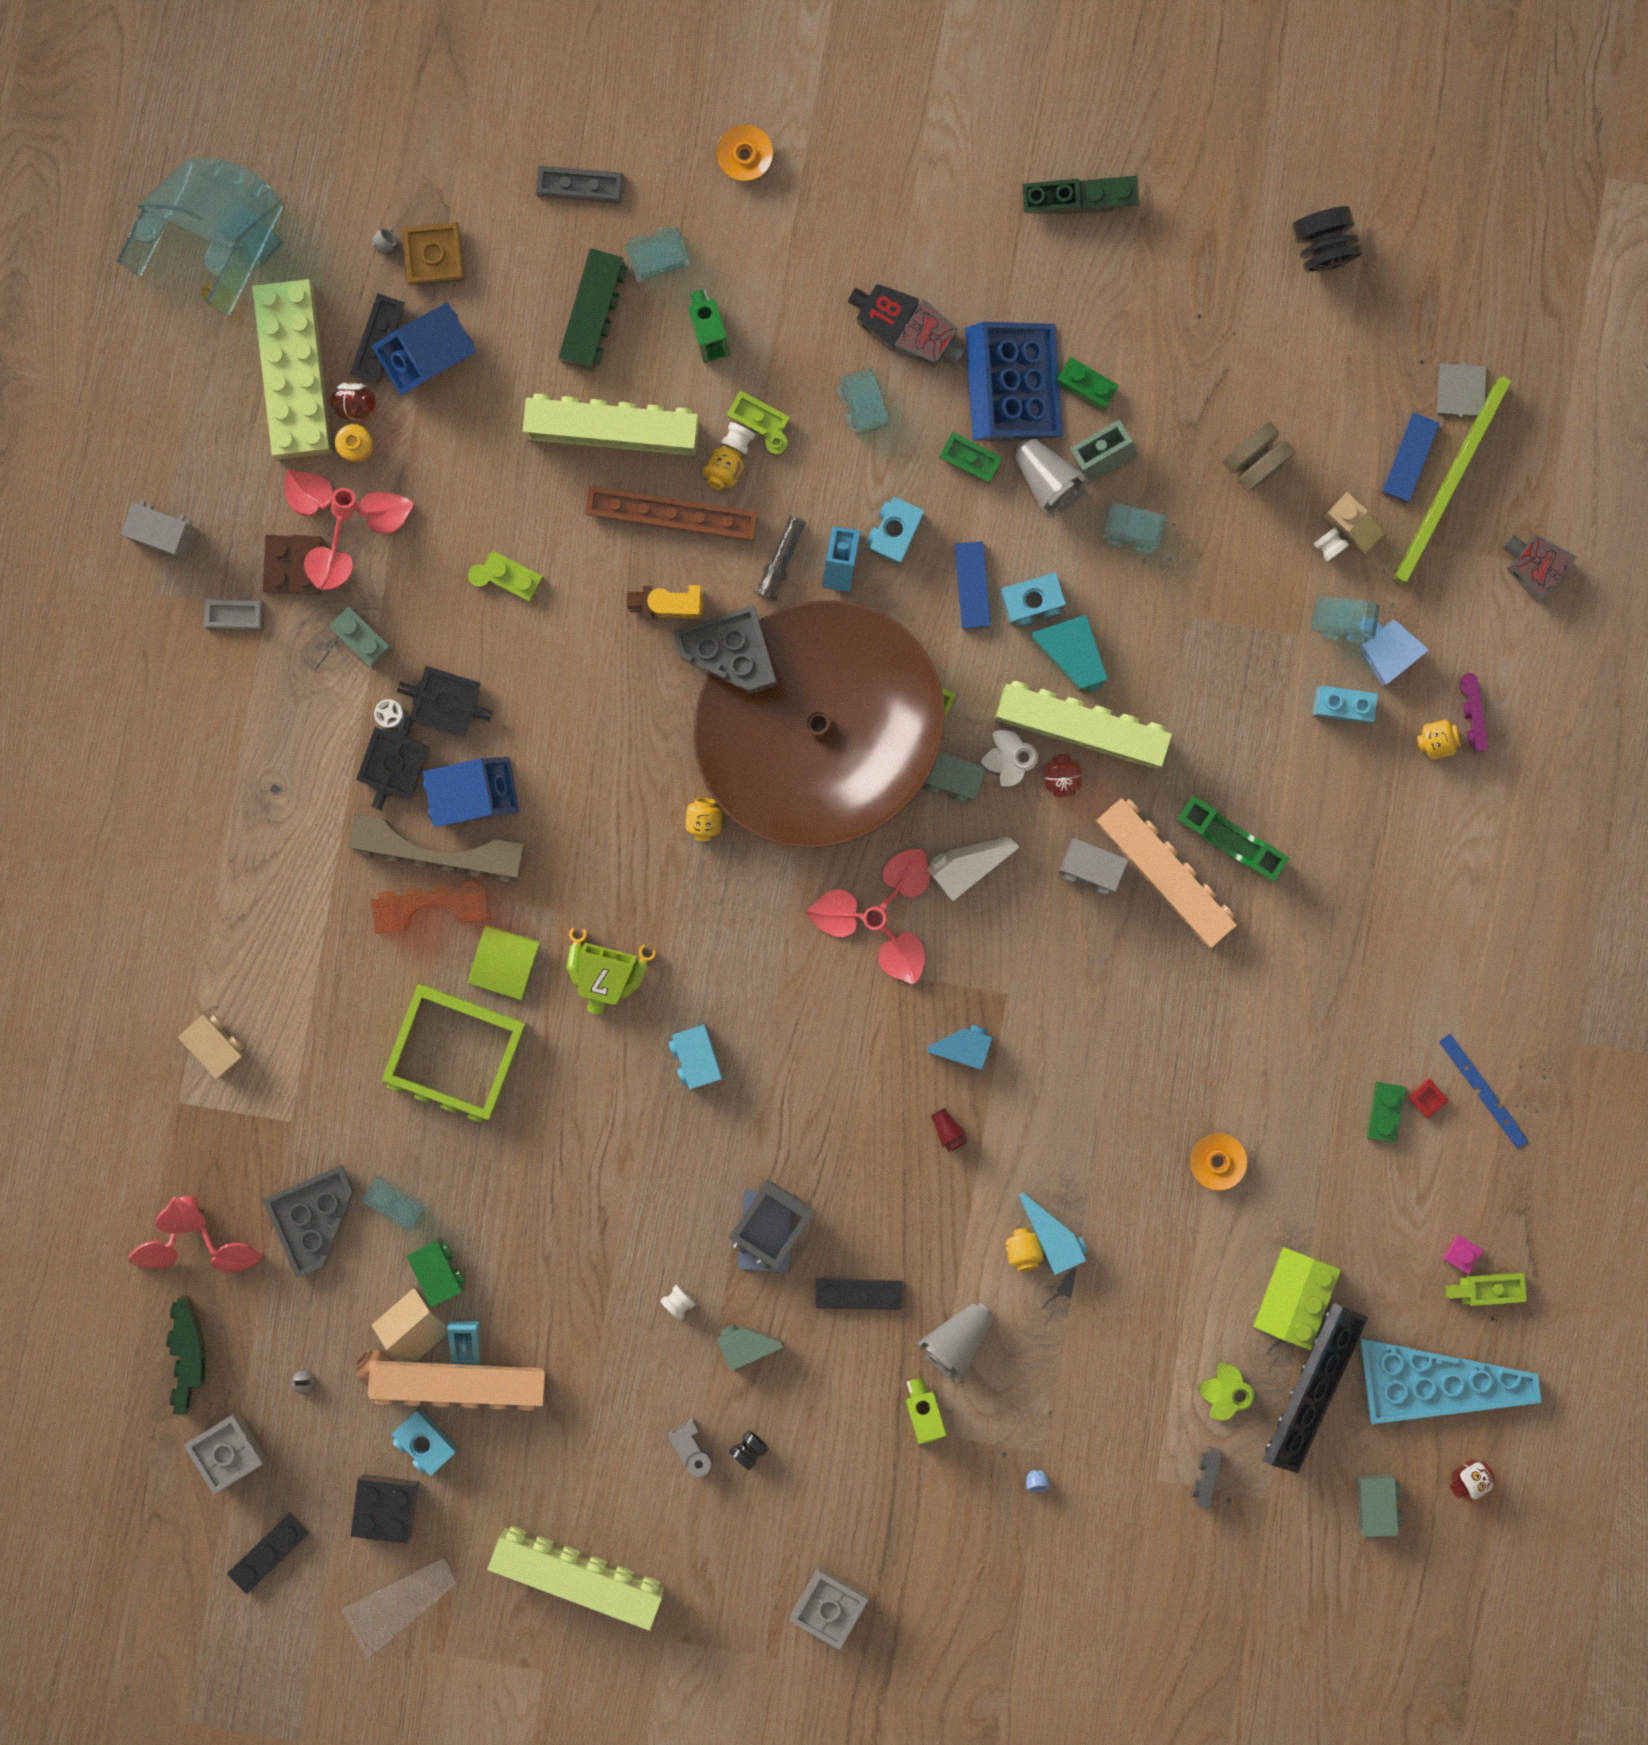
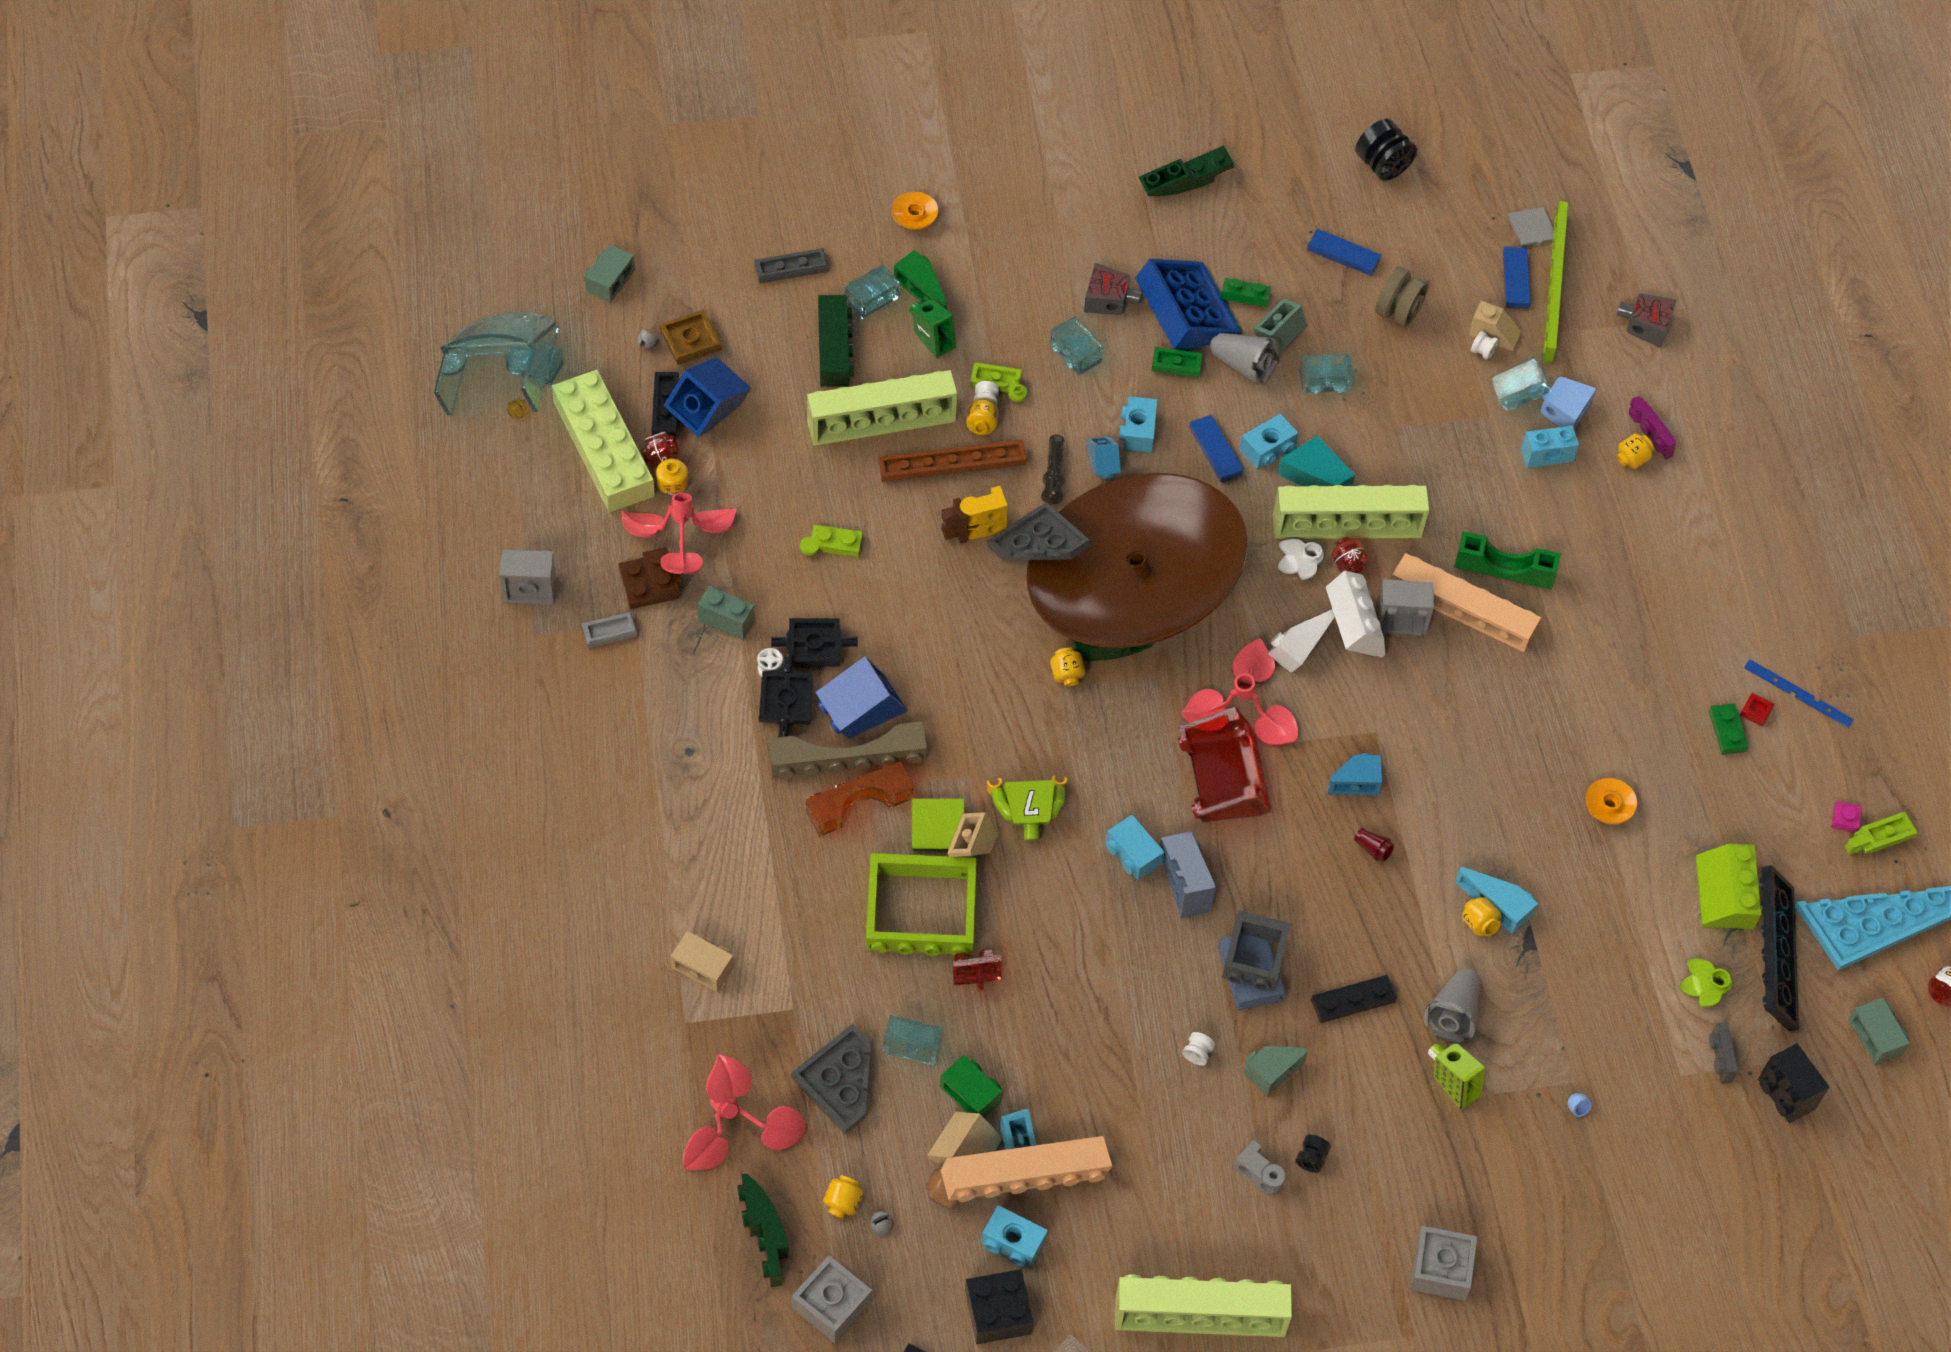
camera: 20 degrees left, 30 degrees down
(272, 1347) = (843, 1196): none -> yellow head
(366, 136) = (609, 273): none -> sand green brick
(473, 1140) = (976, 970): none -> clear red hips
(527, 1001) = (973, 836): none -> tan slope
(717, 251) = (919, 278): none -> green slope
(739, 1105) = (1188, 874): none -> sand blue wedge
(827, 998) = (1225, 767): none -> clear red windscreen
(884, 312) = (1067, 284): black torso -> none
(956, 777) = (1262, 581): sand green brick -> none
(1035, 860) = (1356, 614): none -> white slope
(1224, 360) = (1344, 252): none -> blue tile
(1258, 1539) = (1793, 1083): none -> black brick

